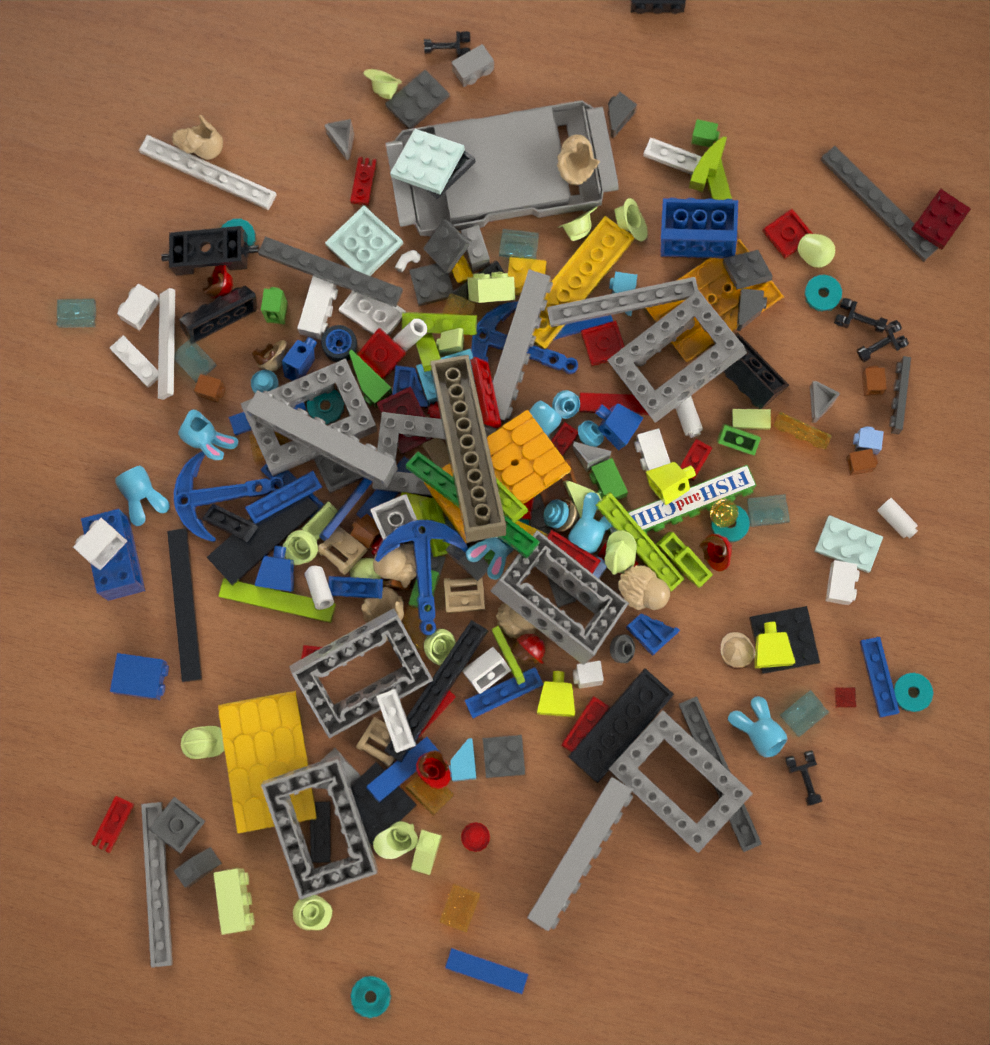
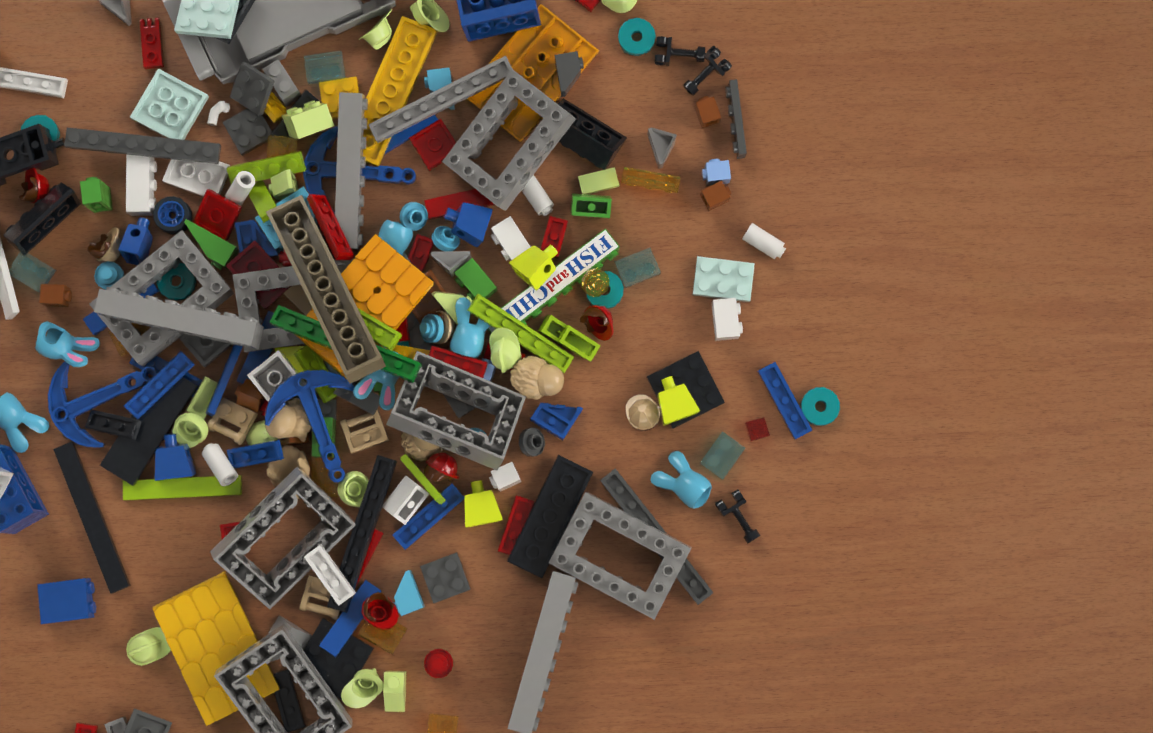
camera: 20 degrees left, 5 degrees up
(747, 269) = (556, 33): dark grey plate -> none

